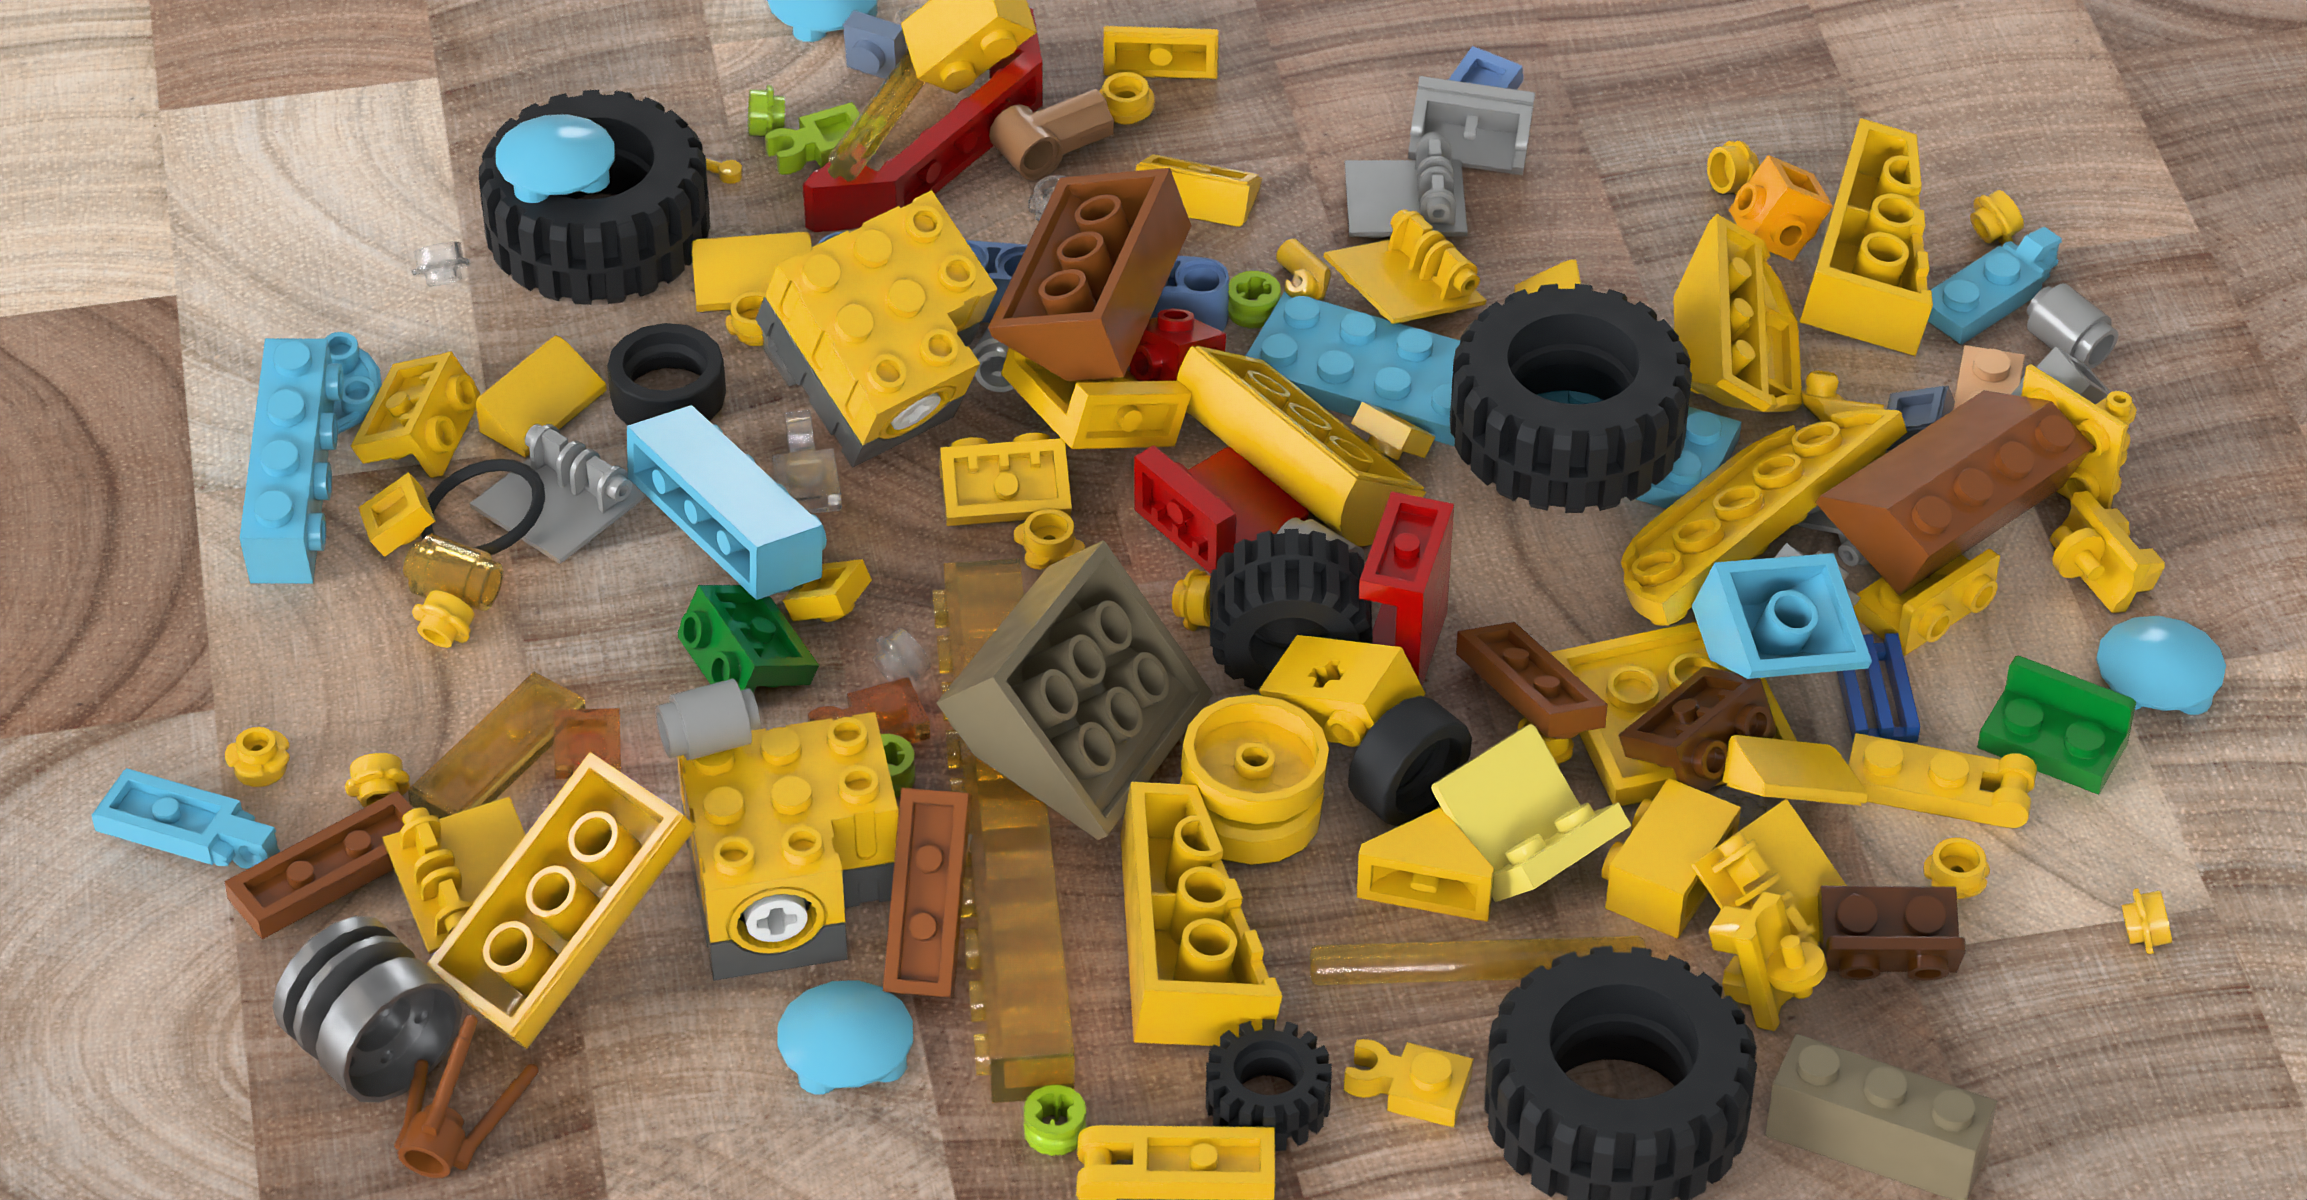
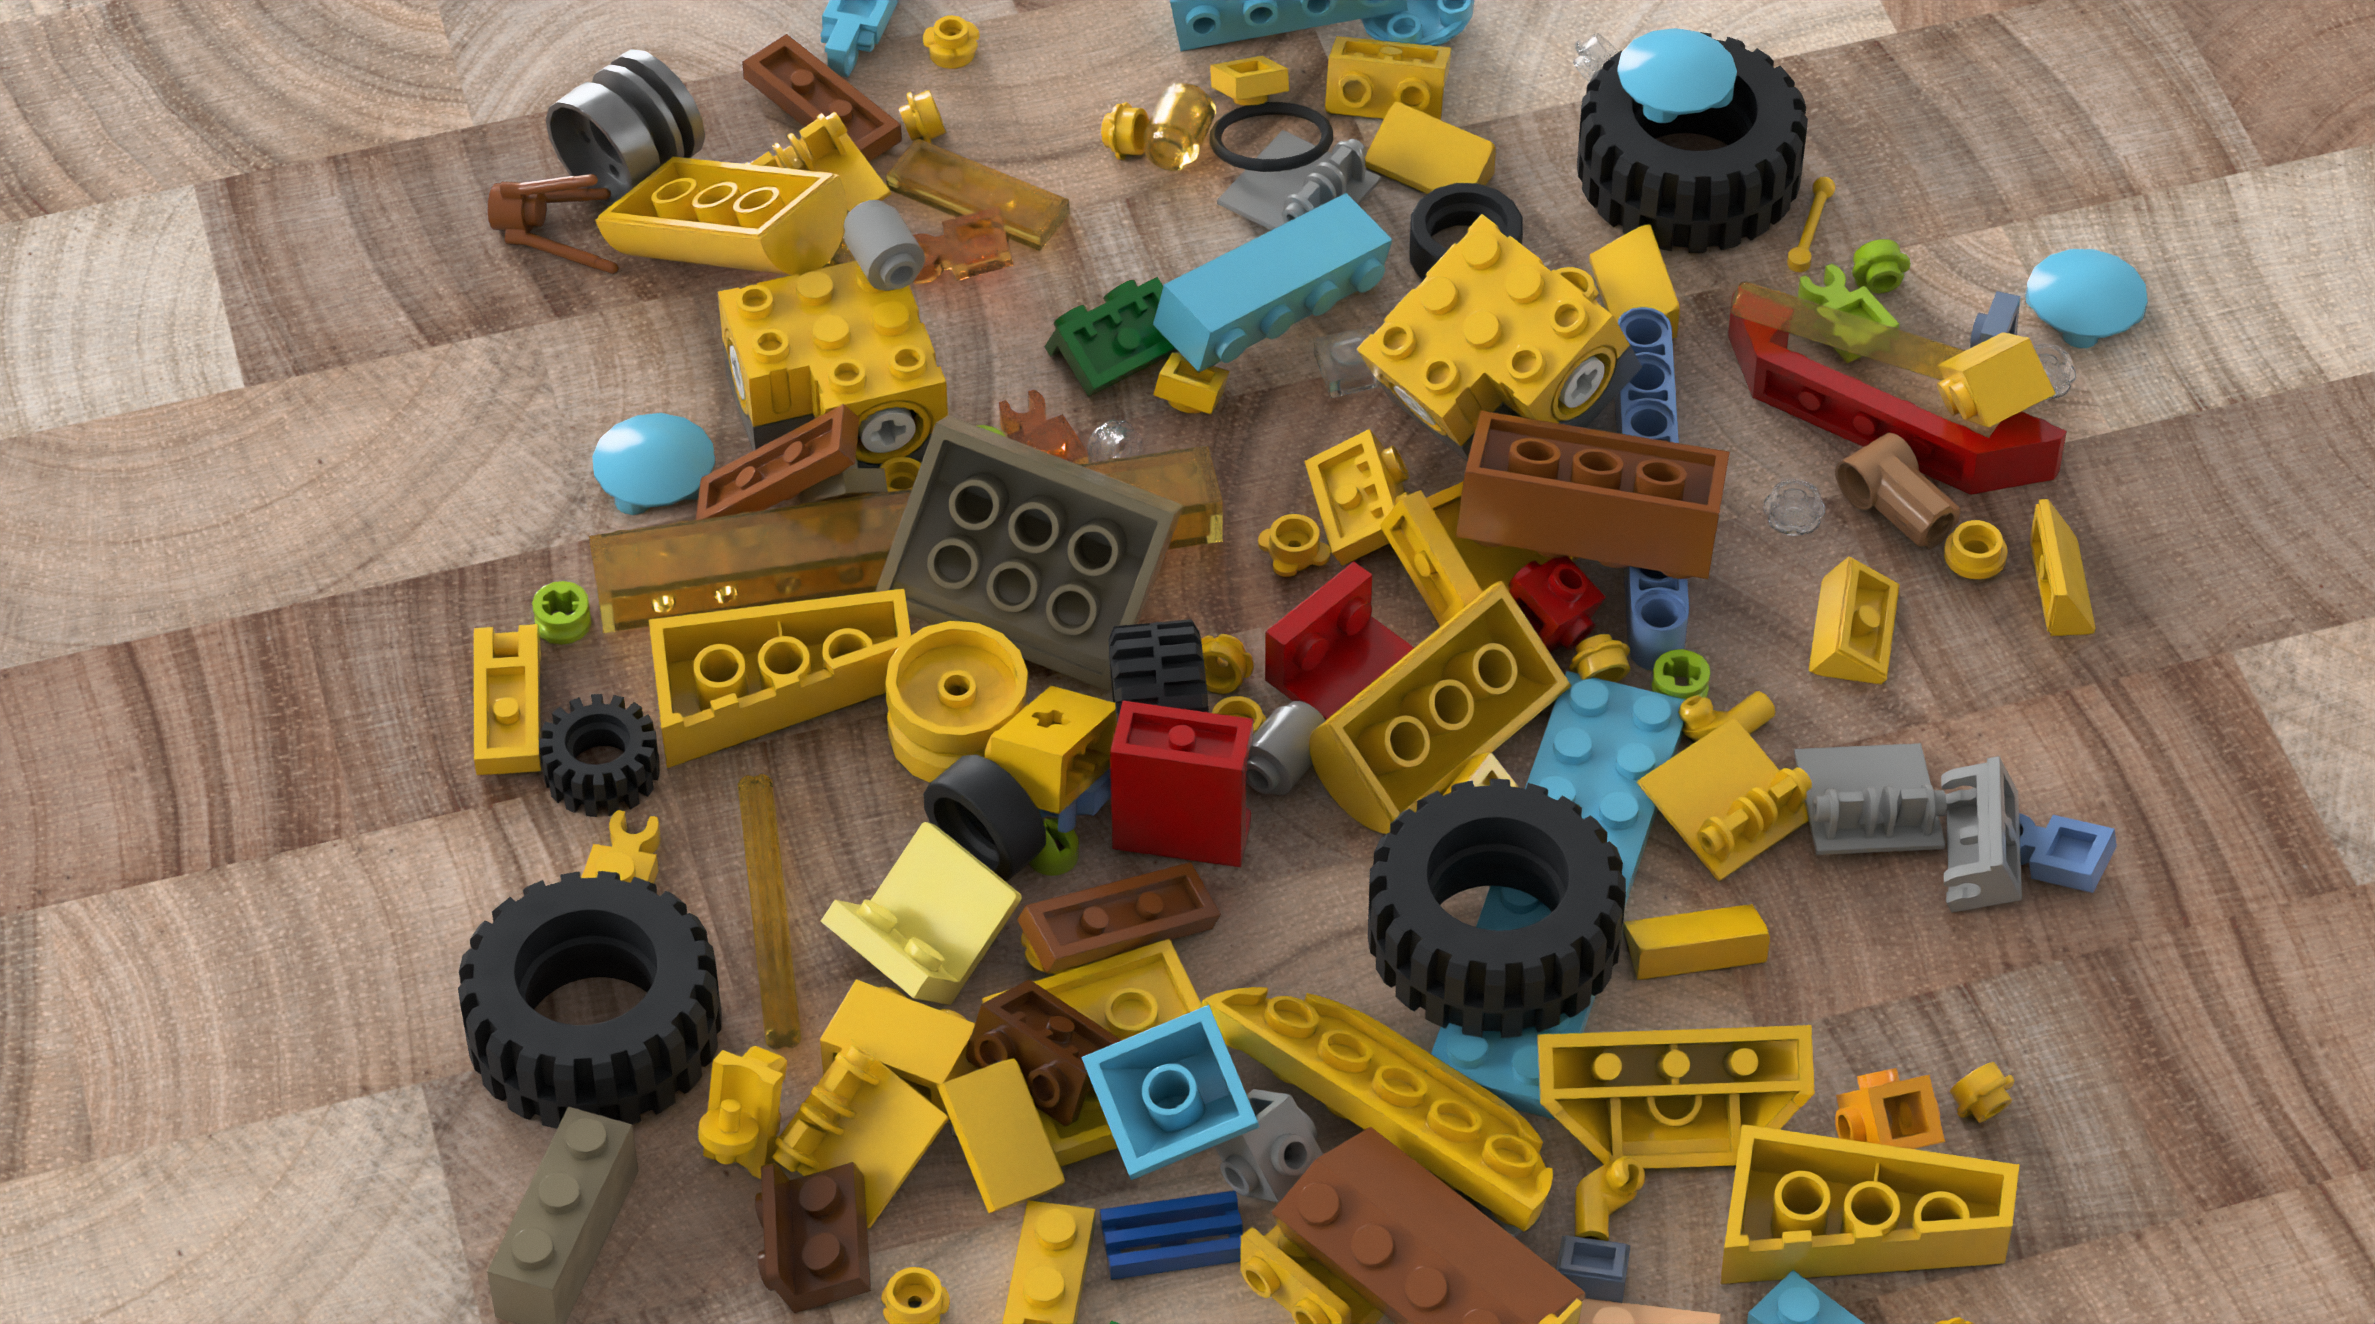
camera: 85 degrees right, 5 degrees up
(1240, 334) = (1601, 659): none -> yellow plate
(1427, 868) = (869, 846): yellow slope -> none

